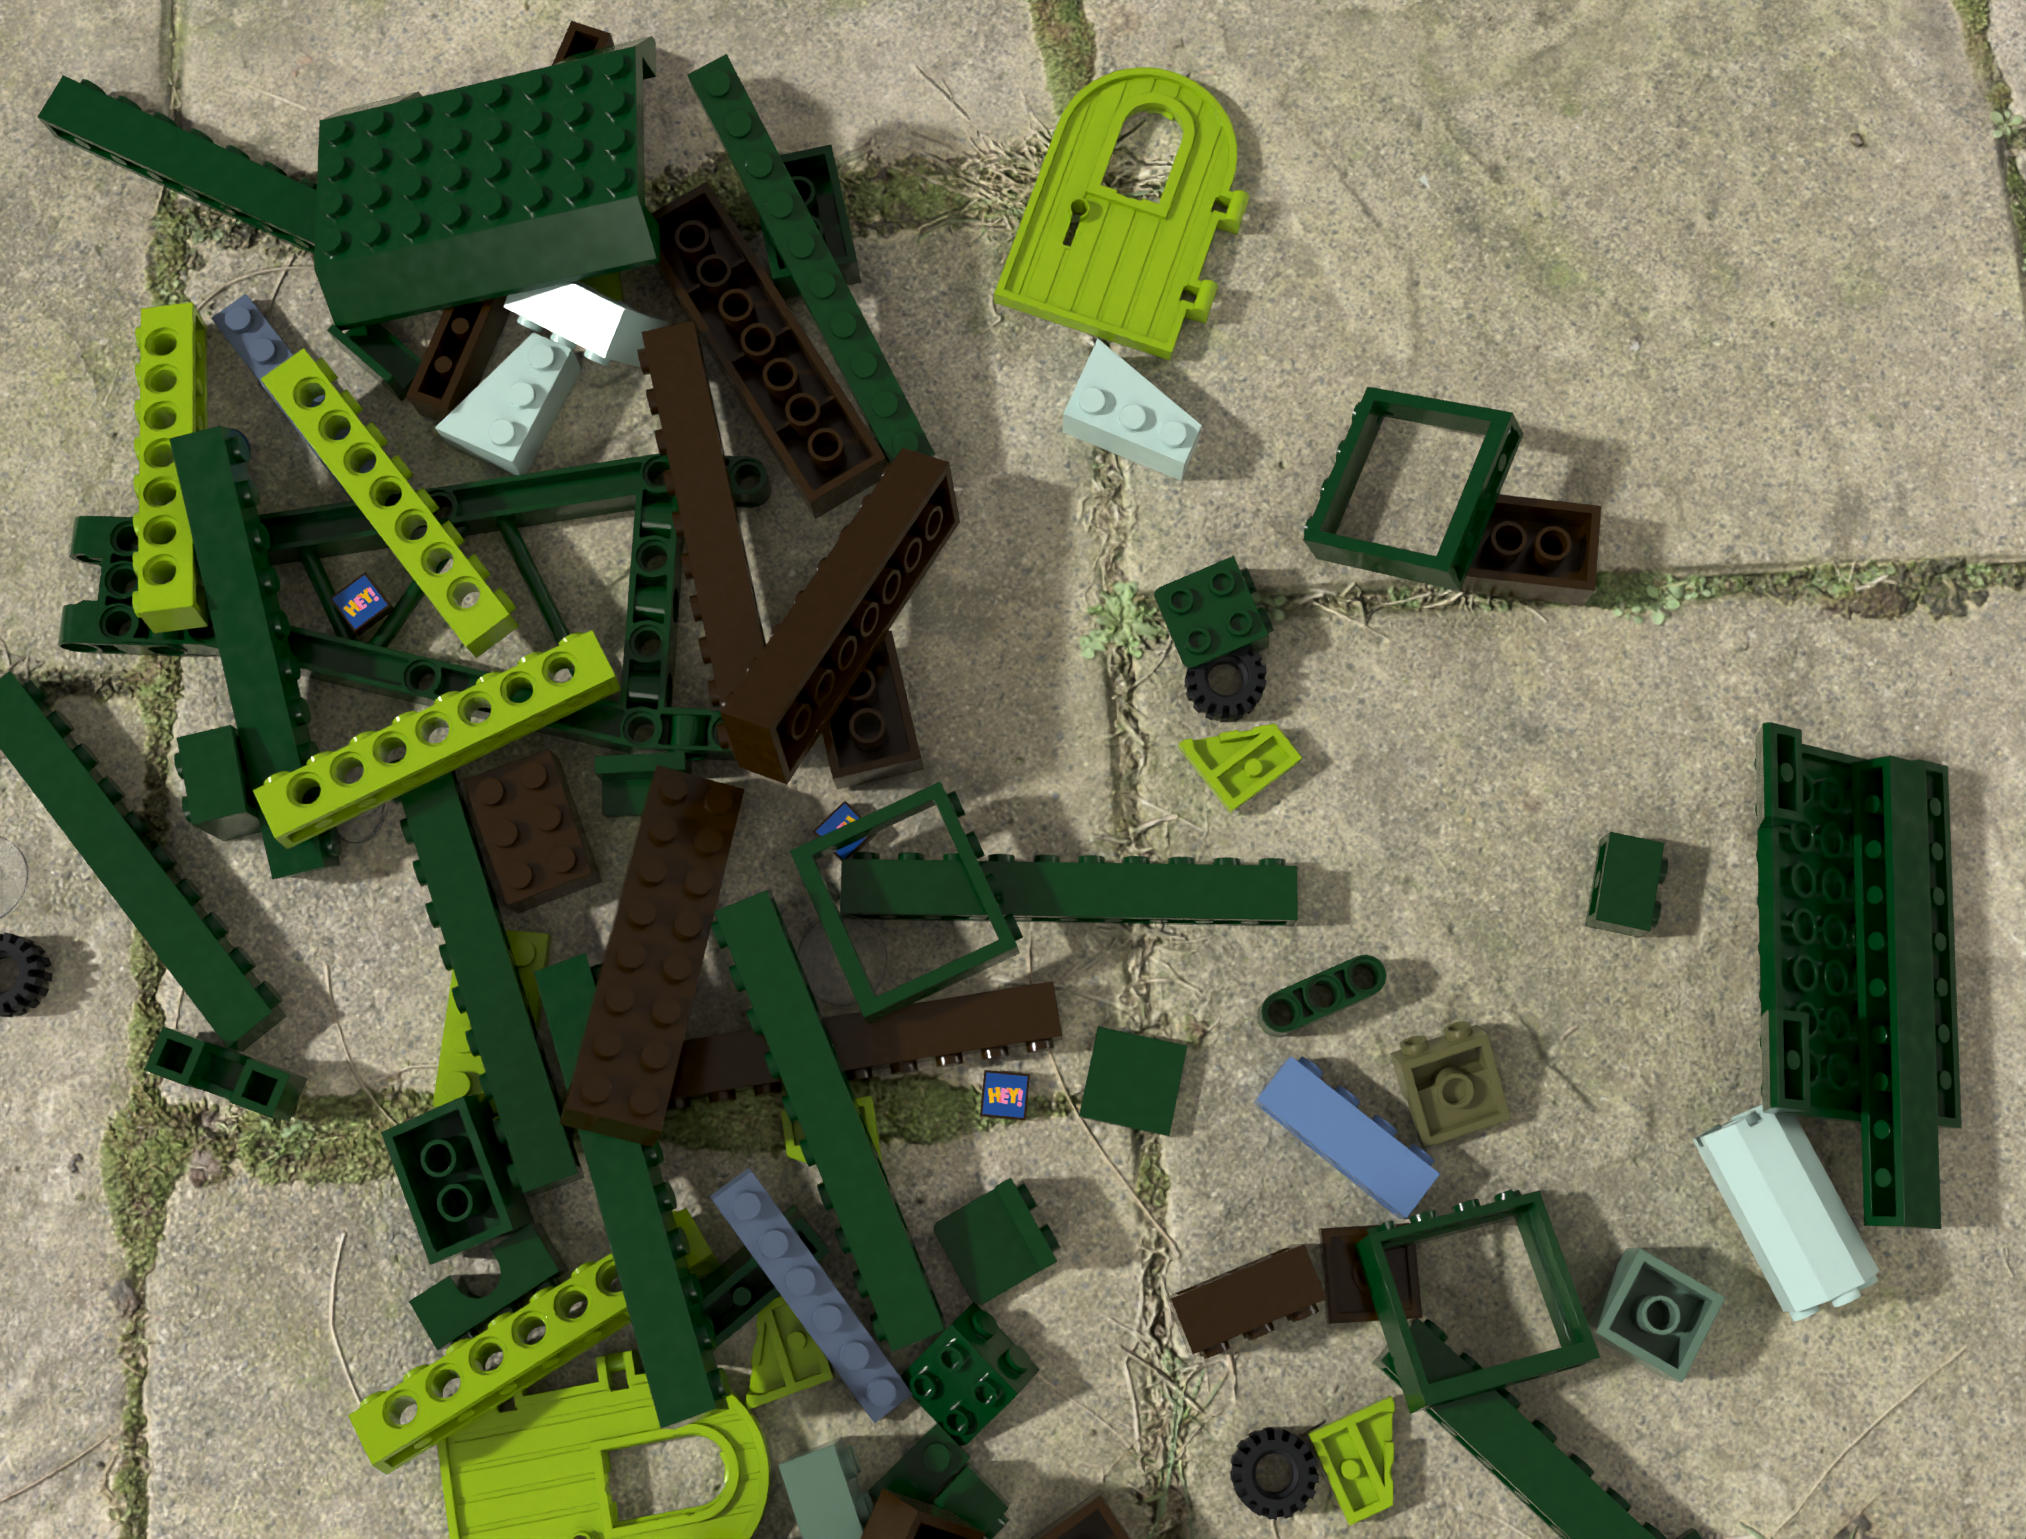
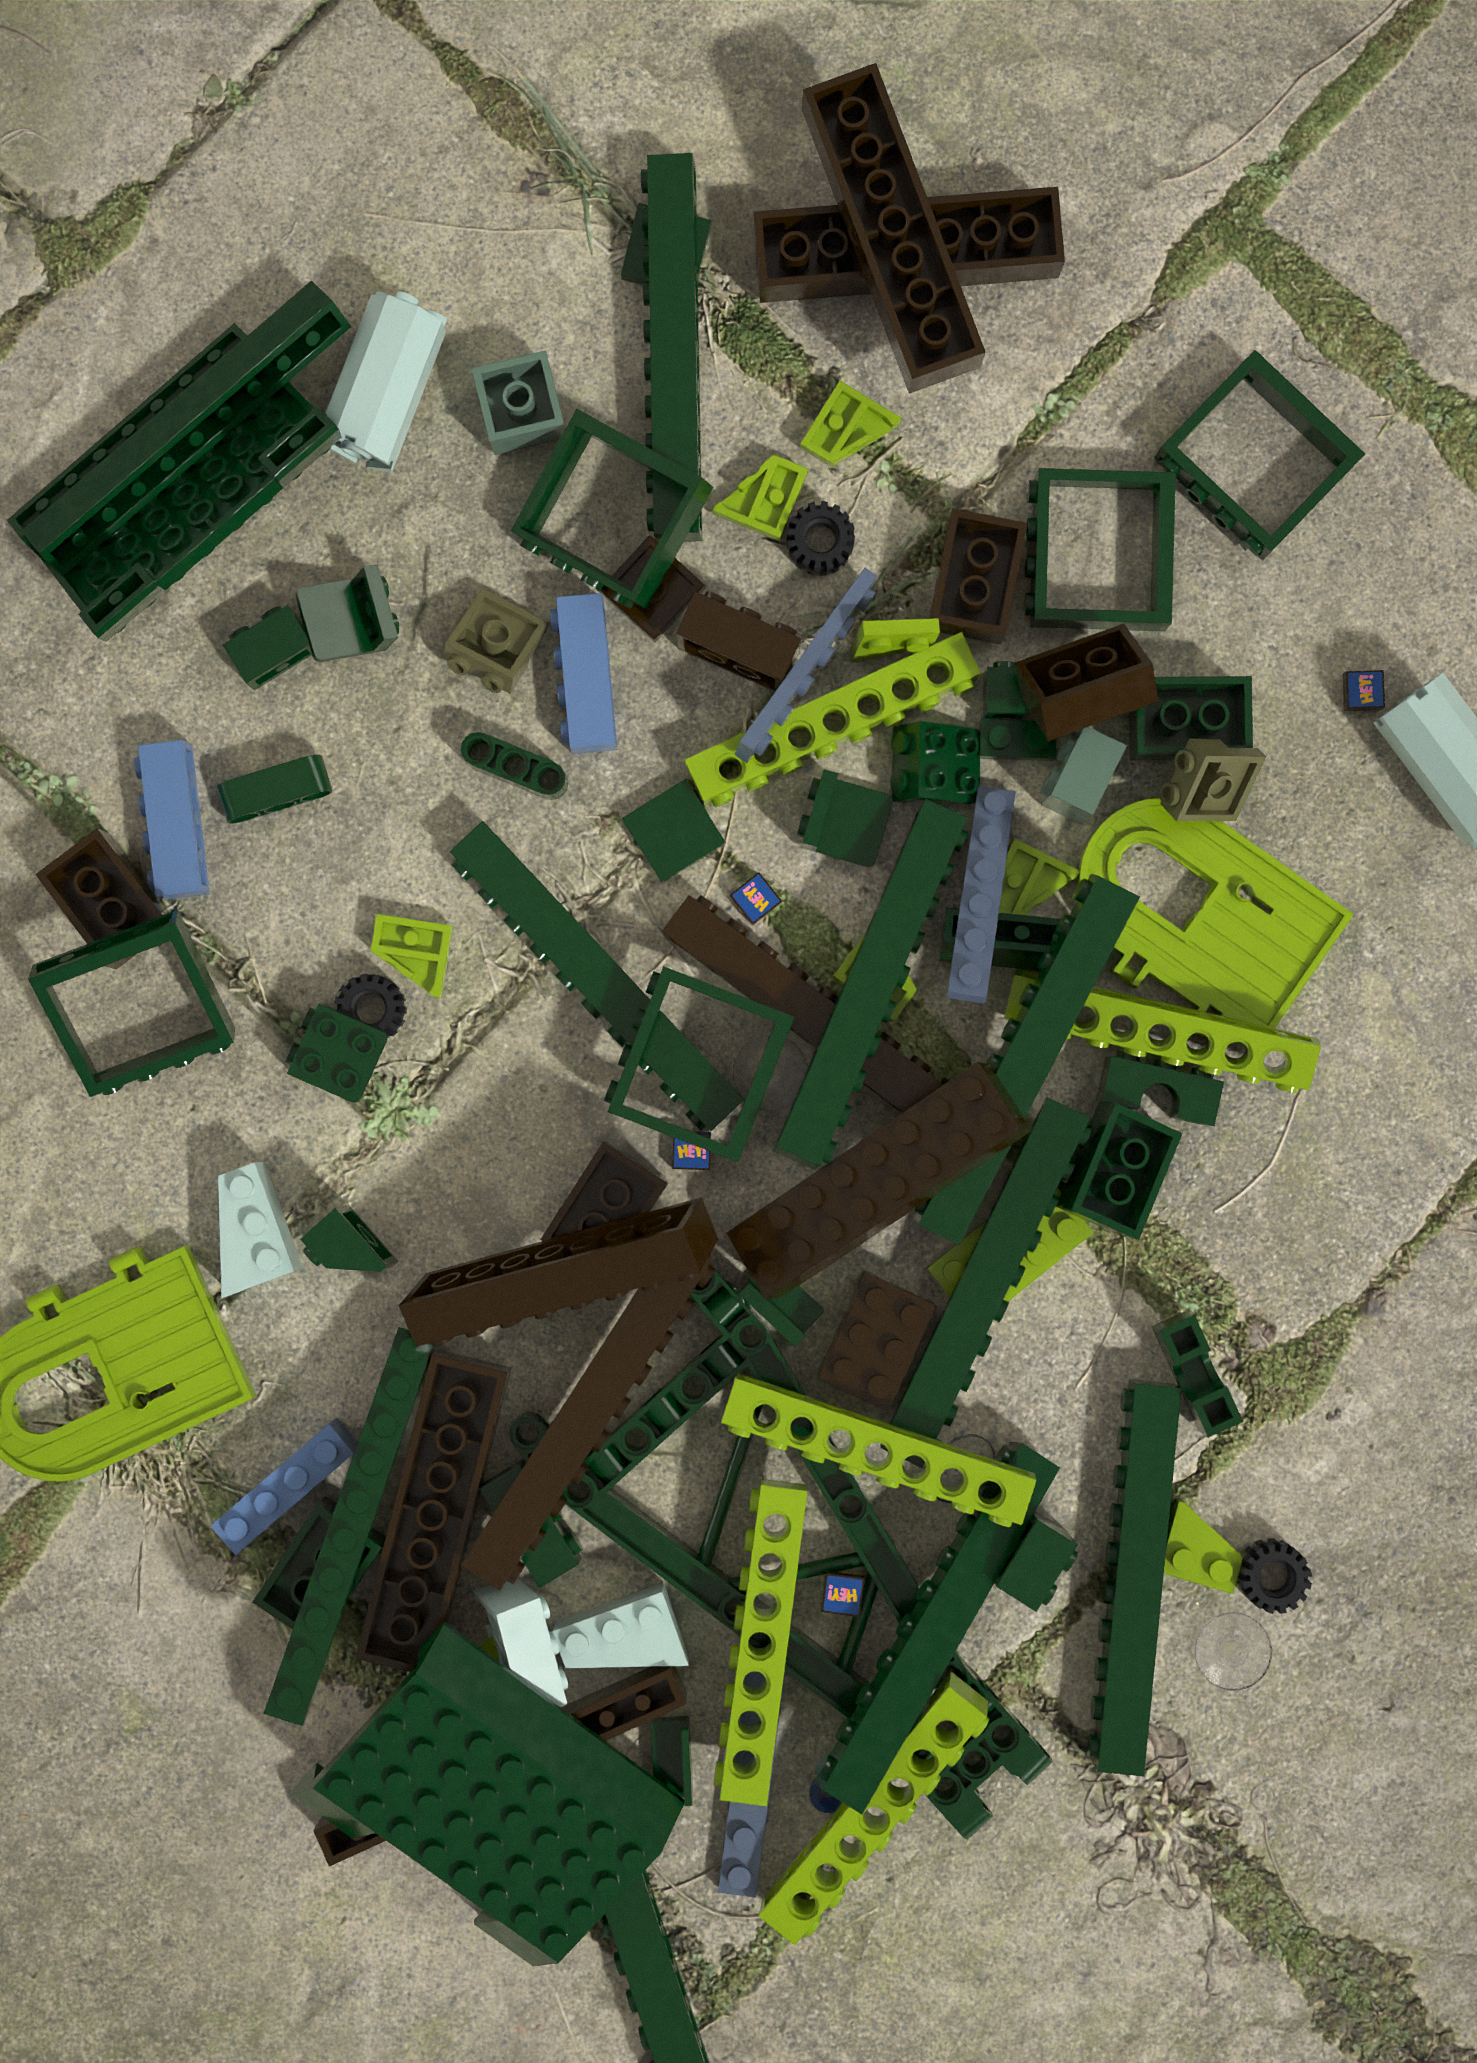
camera: 135 degrees left, 10 degrees up
(88, 931) = (1199, 1552): none -> lime wing
(631, 420) = (557, 1550): none -> dark green arch
(898, 257) = (285, 1486): none -> medium blue brick
(1041, 476) = (346, 1243): none -> dark green slope
(1053, 1486) = (950, 655): none -> lime brick
(1116, 1448) = (893, 637): none -> lime wing
(1168, 1360) = (799, 678): none -> sand blue plate
(1493, 774) = (274, 788): none -> dark green beam
(1546, 665) = (172, 820): none -> medium blue brick
(1592, 975) = (348, 616): none -> bracket

